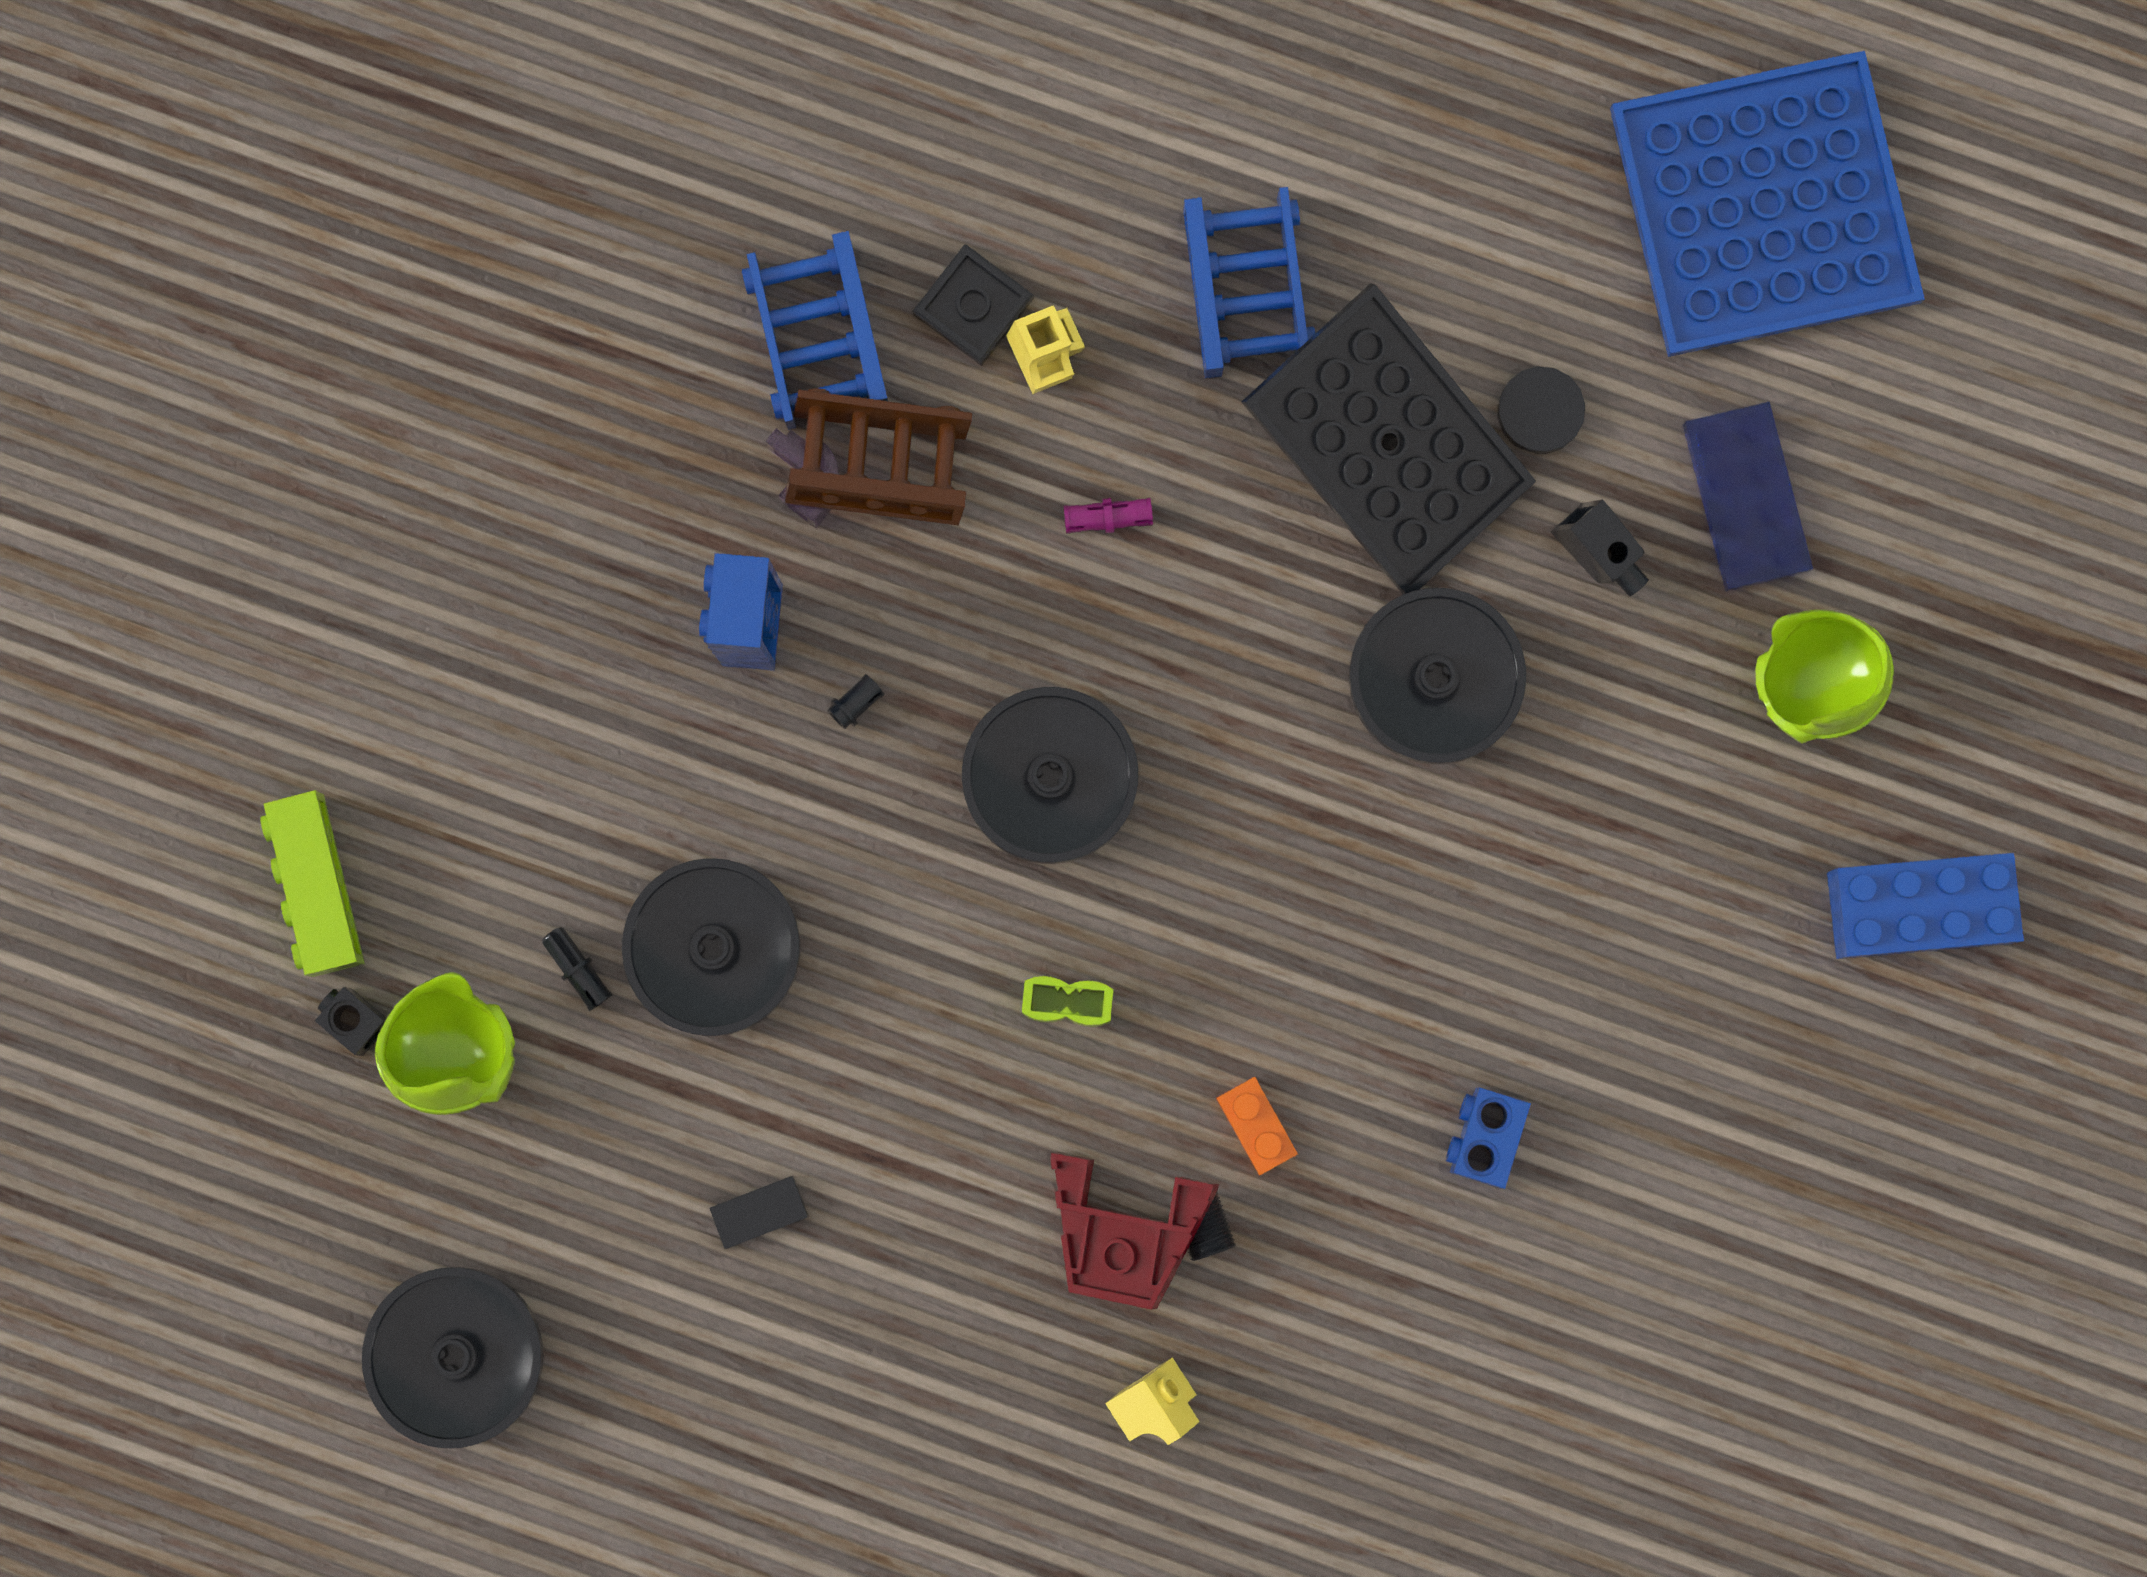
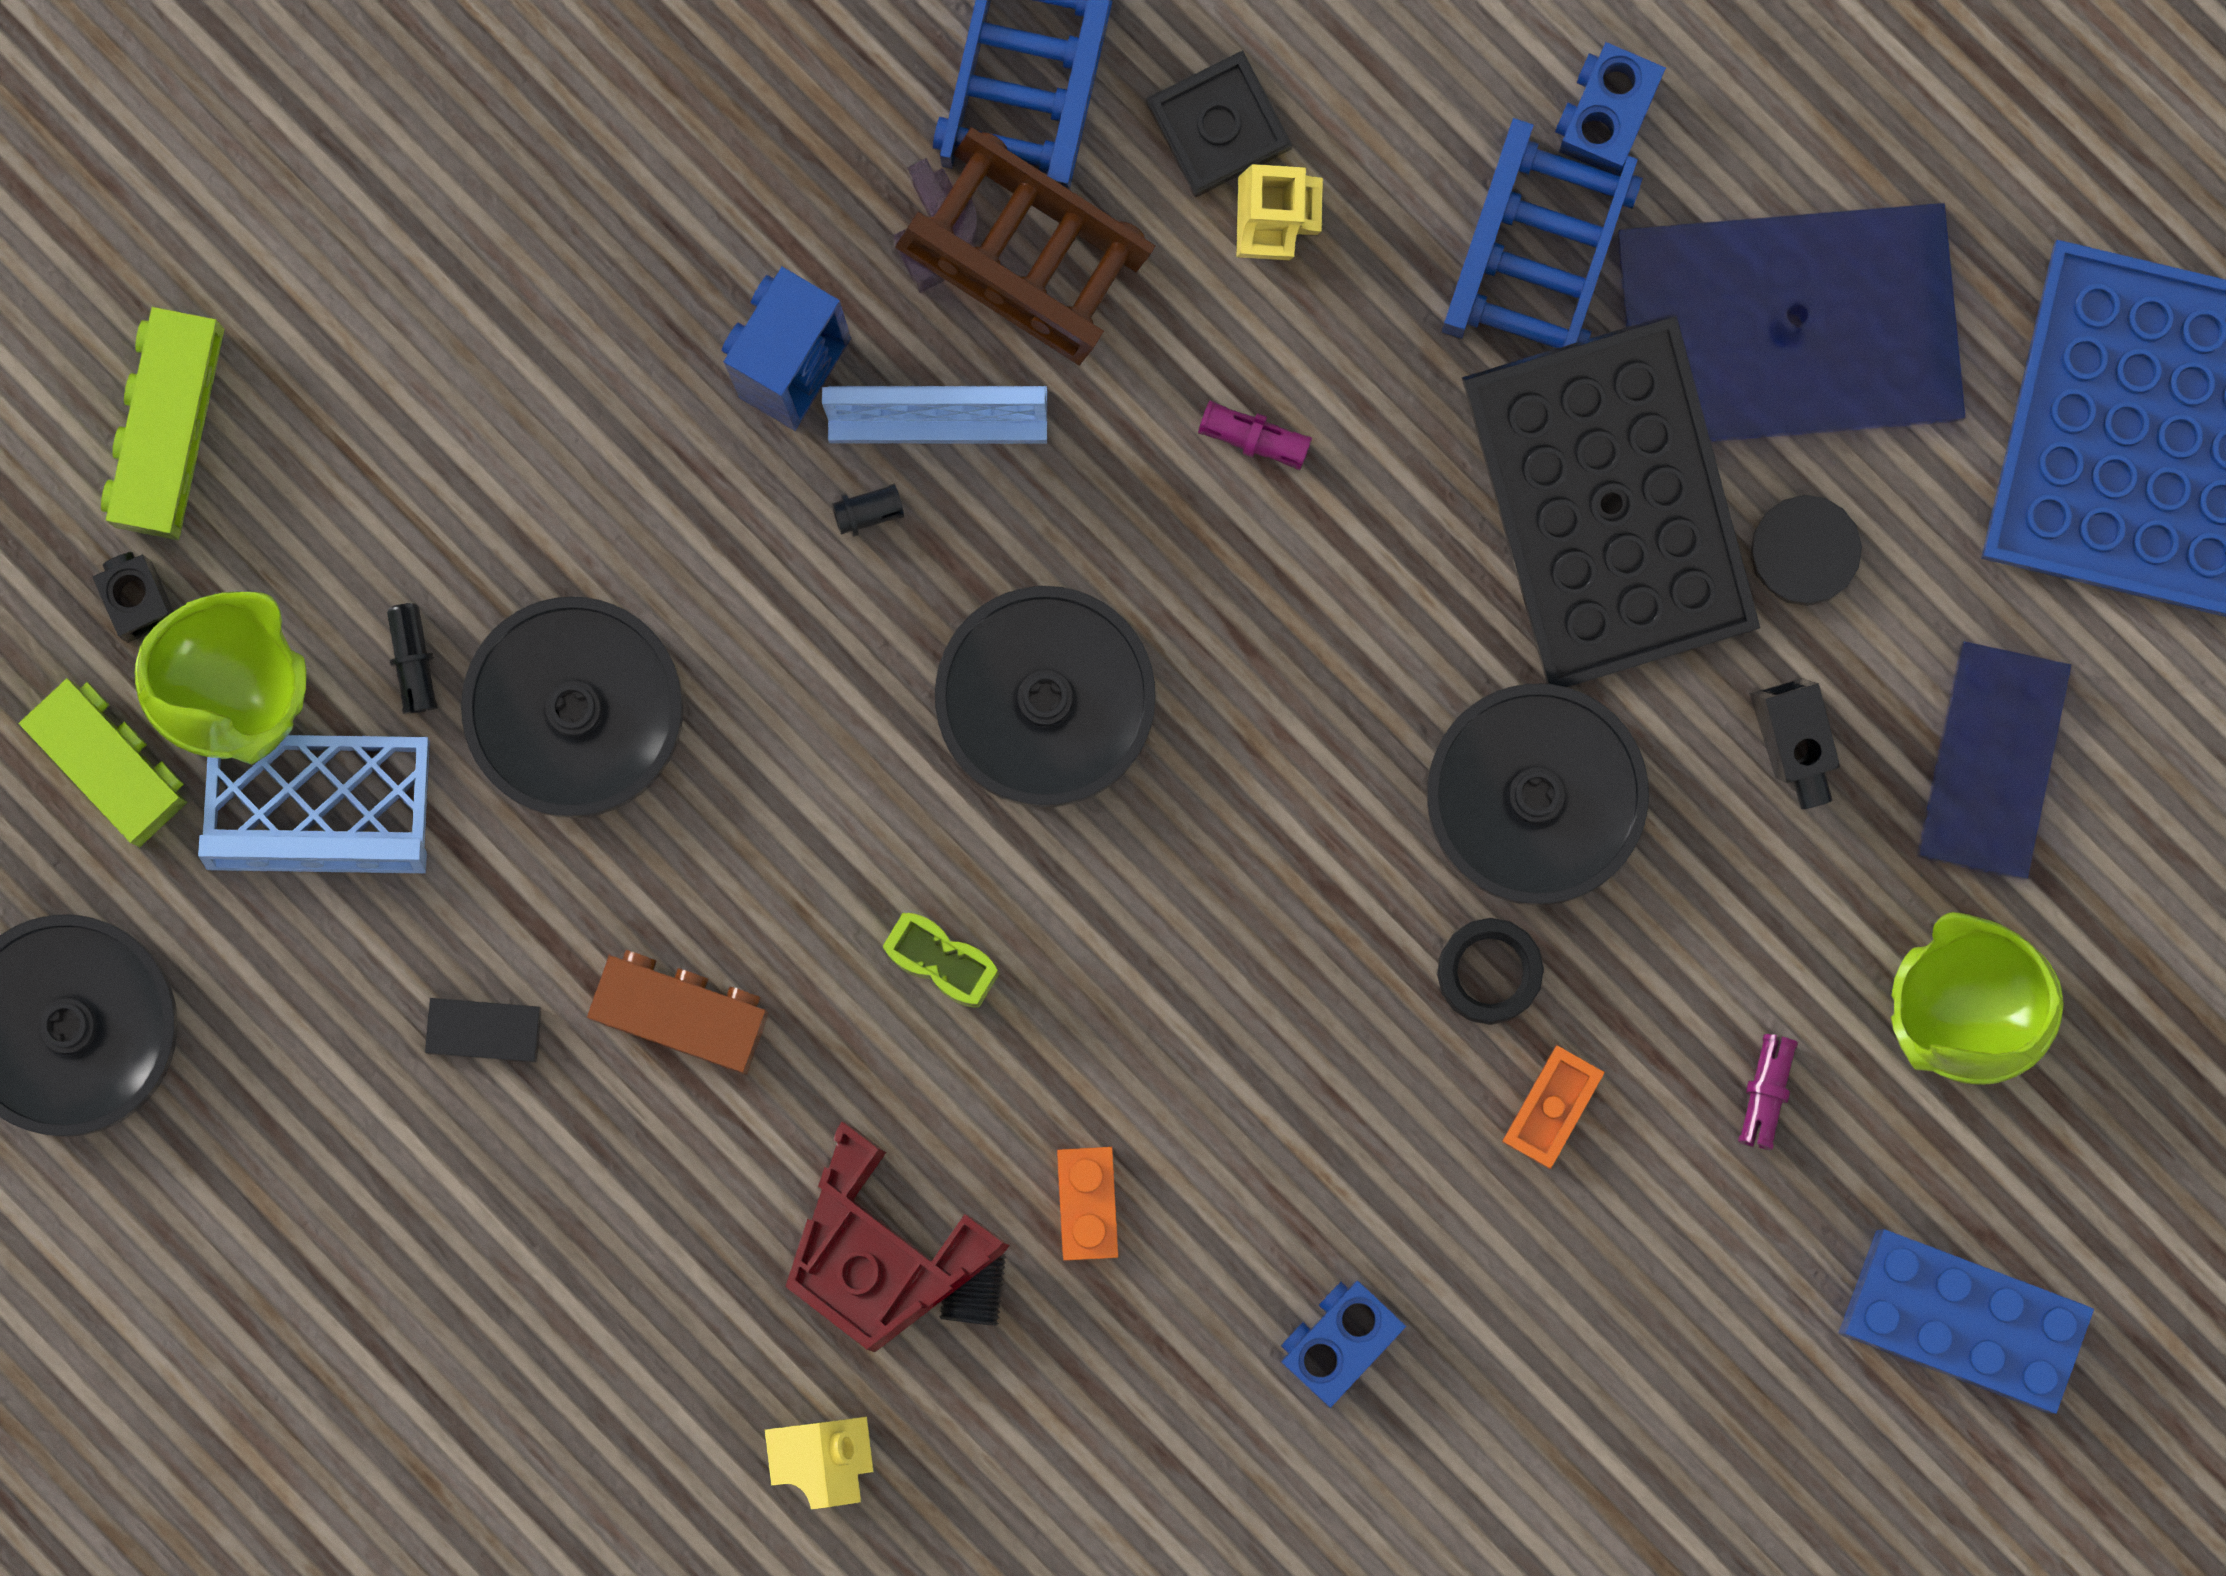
camera: 30 degrees right, 0 degrees up
(388, 1150) = (105, 760): none -> lime brick
(574, 1140) = (325, 849): none -> light blue fence
(873, 609) = (936, 414): none -> light blue fence
(895, 1130) = (679, 1011): none -> dark orange brick
(1257, 161) = (1619, 112): none -> blue brick
(1493, 204) = (1870, 303): none -> clear blue piece
(1496, 810) = (1513, 936): none -> black tyre
(1556, 895) = (1553, 1107): none -> orange plate
(1703, 810) = (1768, 1092): none -> magenta pin

